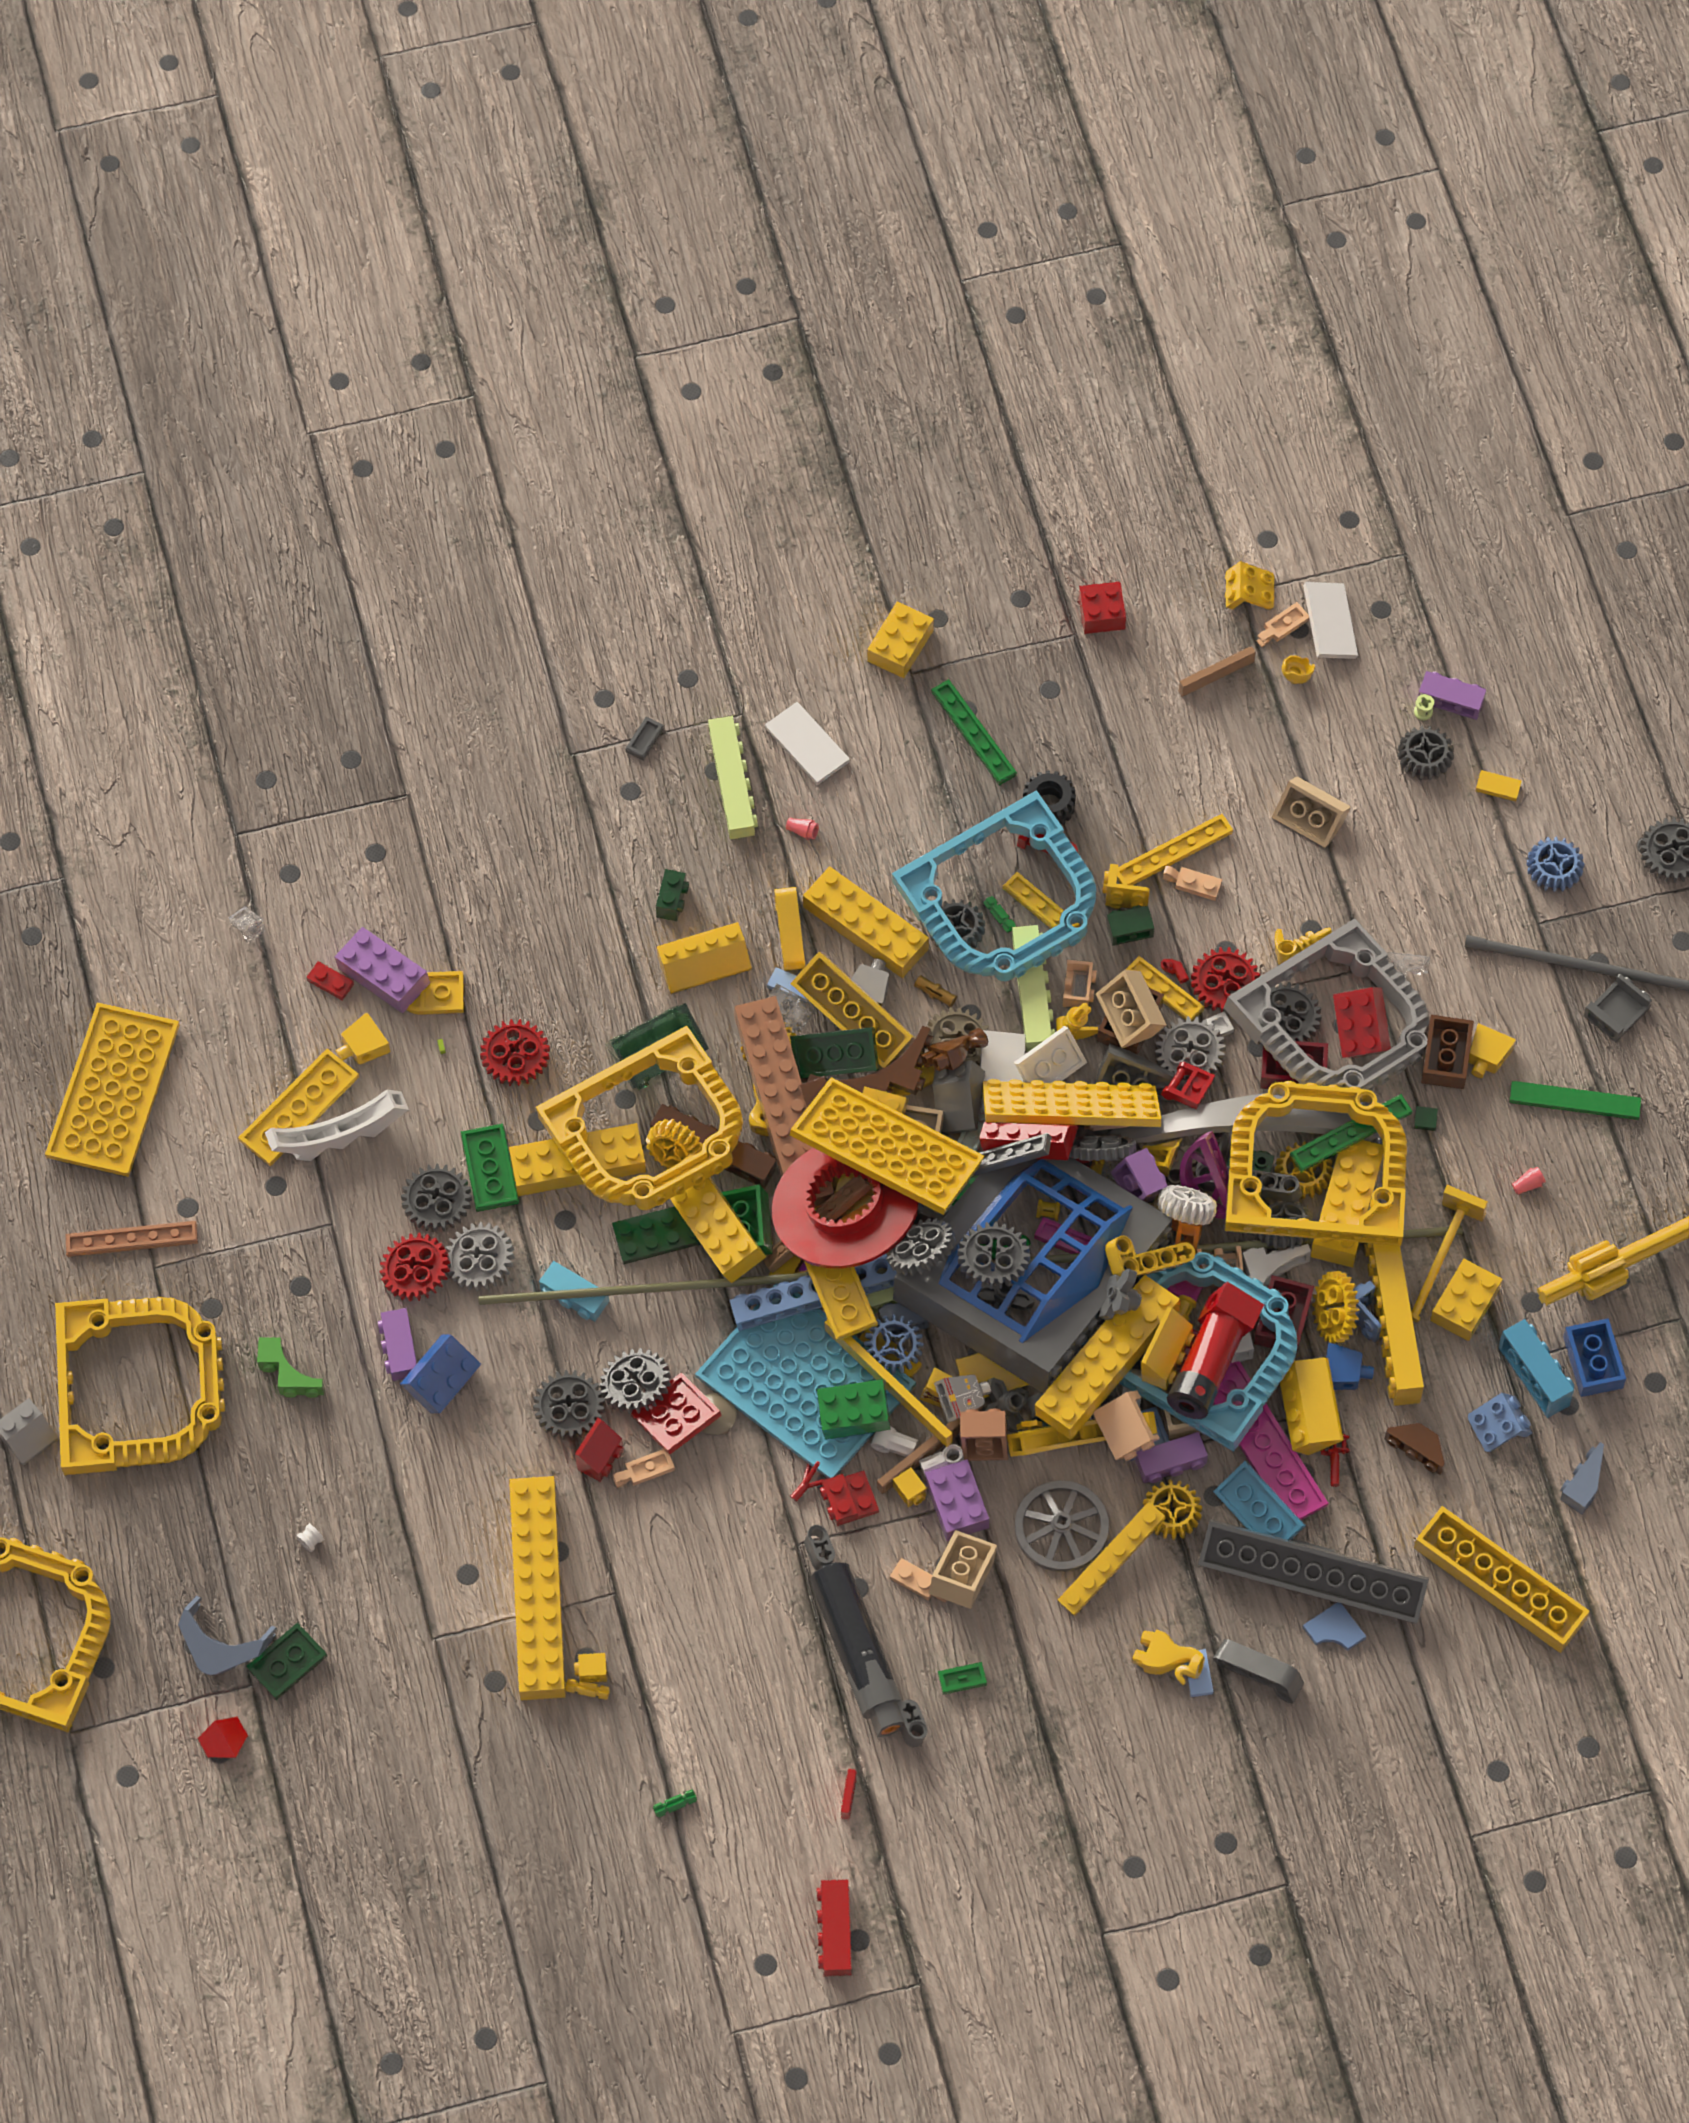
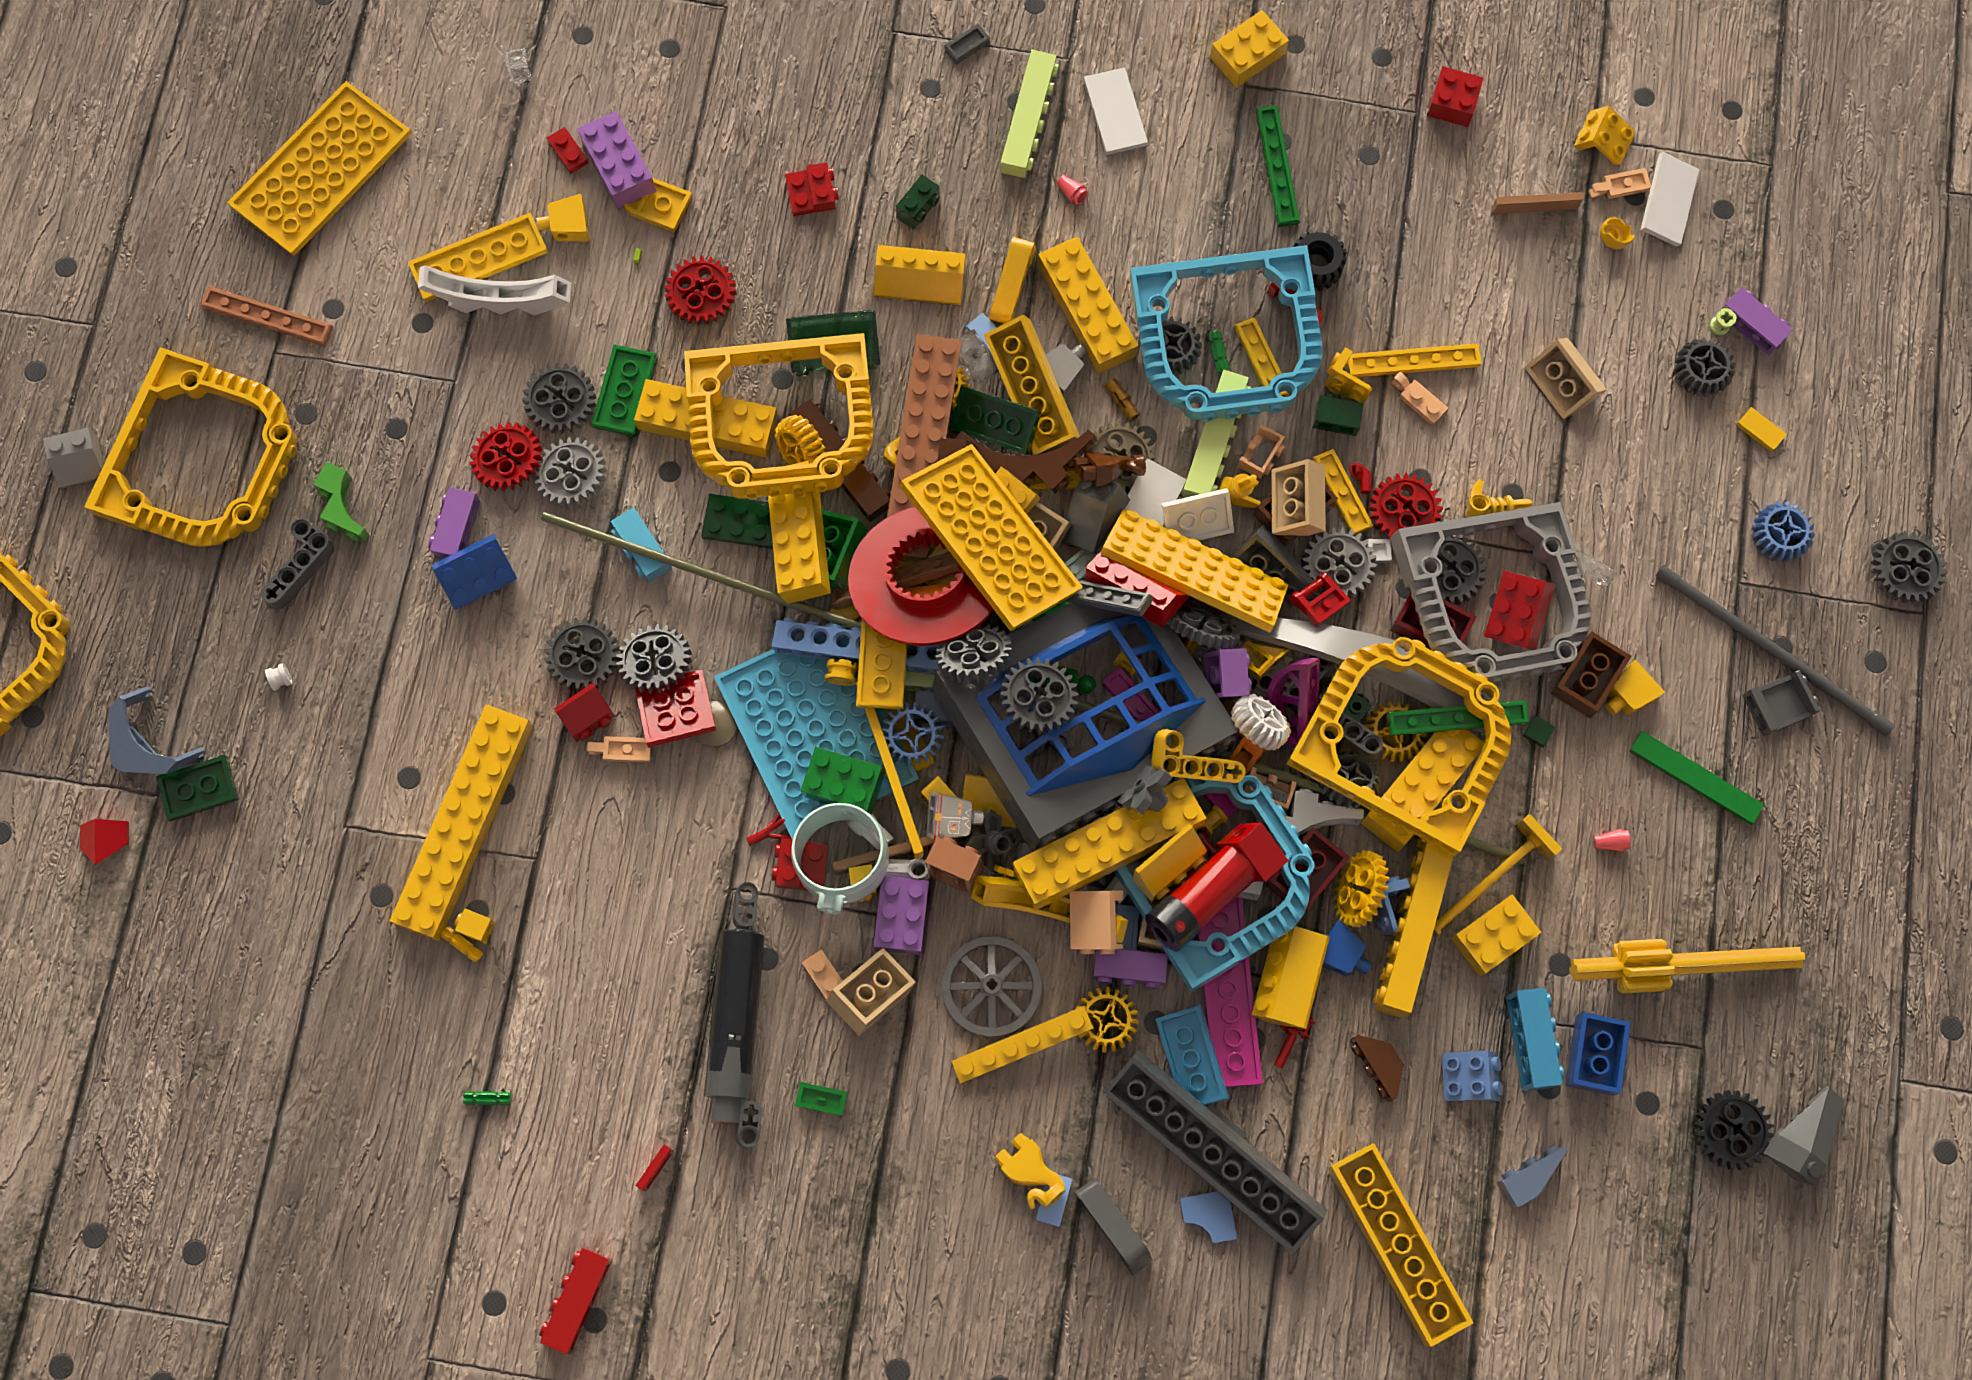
camera: 20 degrees right, 10 degrees up
(277, 1441) = (293, 566): none -> dark grey beam
(570, 923) = (812, 189): none -> red plate
(807, 1320) = (841, 672): none -> yellow wheel
(895, 1504) = (832, 899): none -> light aqua cylinder

